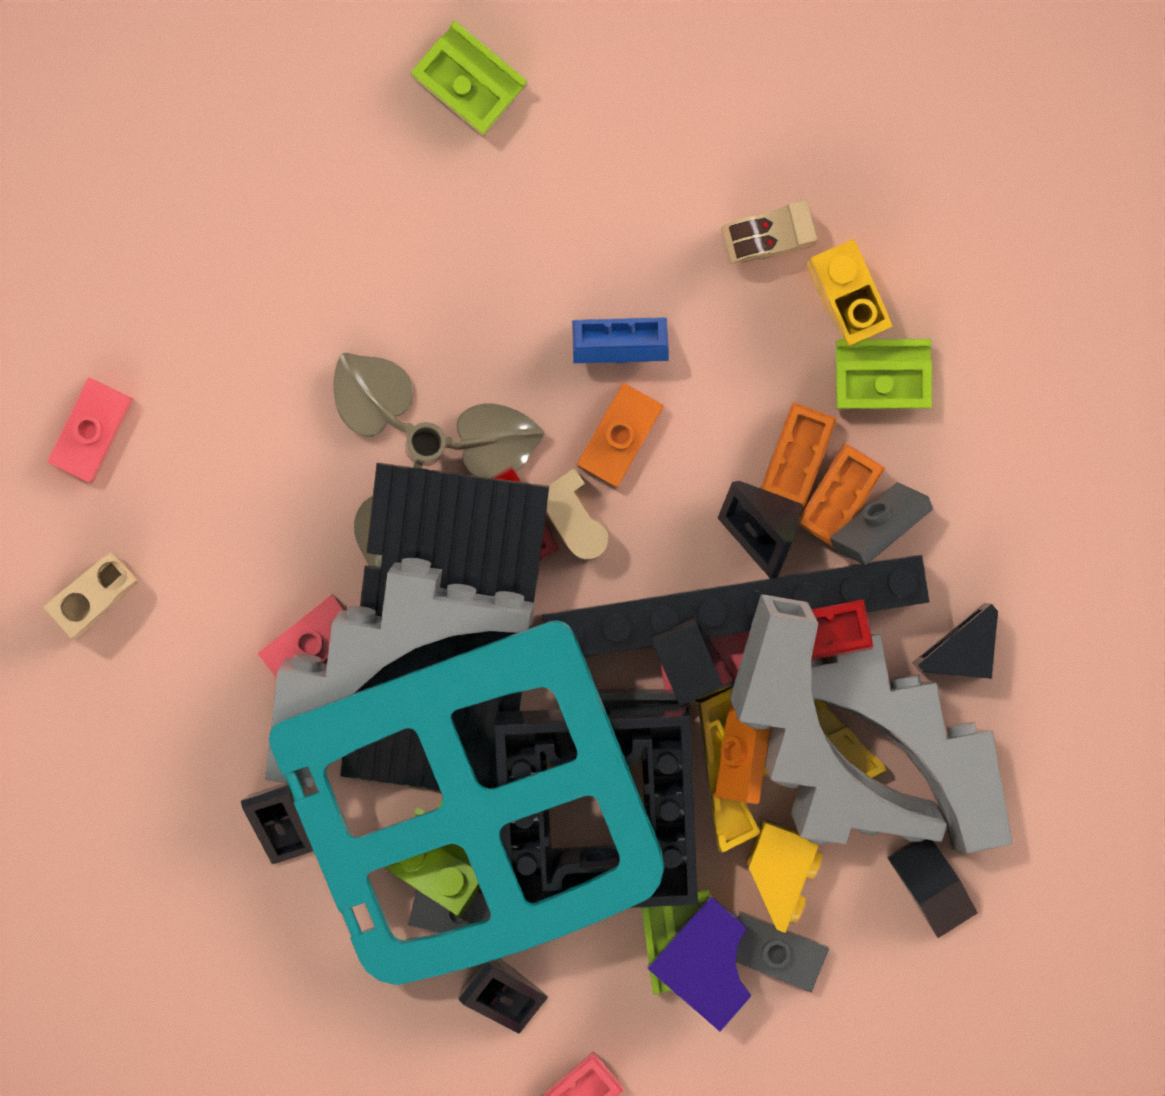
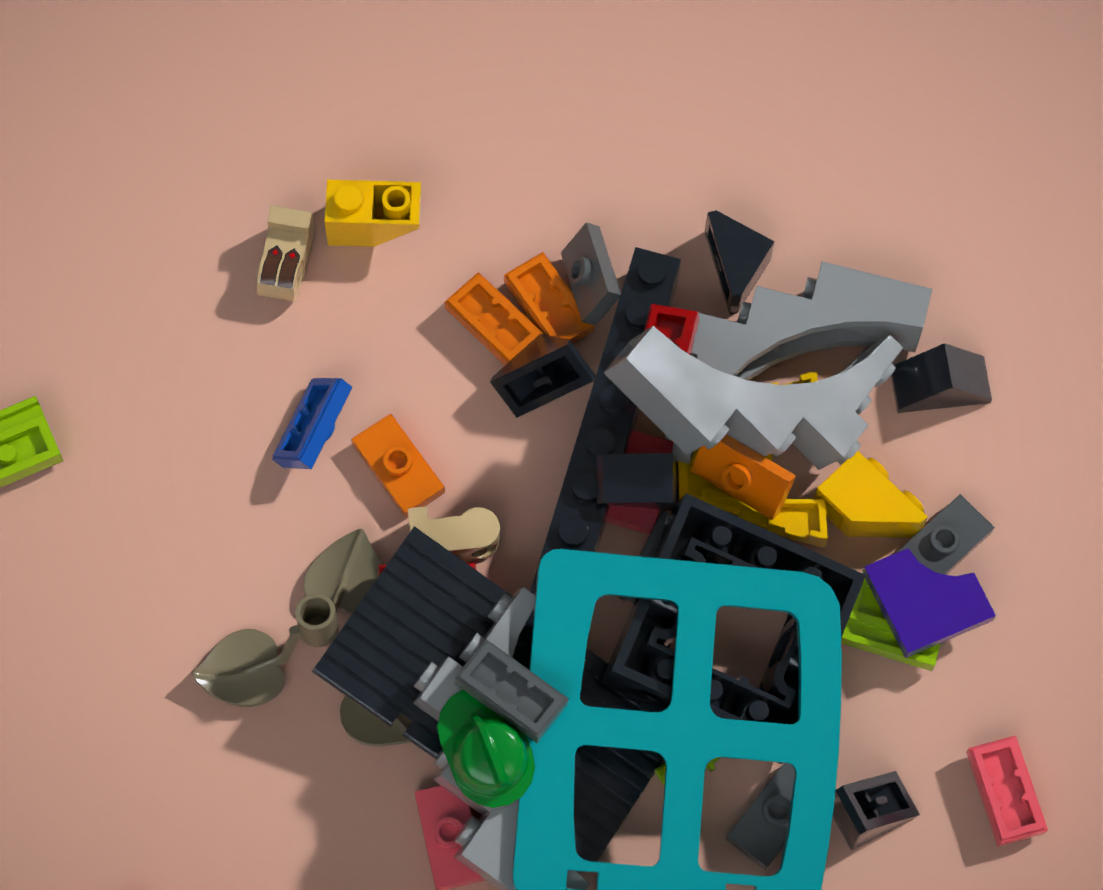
camera: 70 degrees left, 20 degrees down
(374, 649) = (484, 752): none -> green piece
(425, 652) = (511, 691): none -> dark grey plate
(440, 875) = (731, 806): lime plate -> none
(883, 374) = (459, 219): lime plate -> none

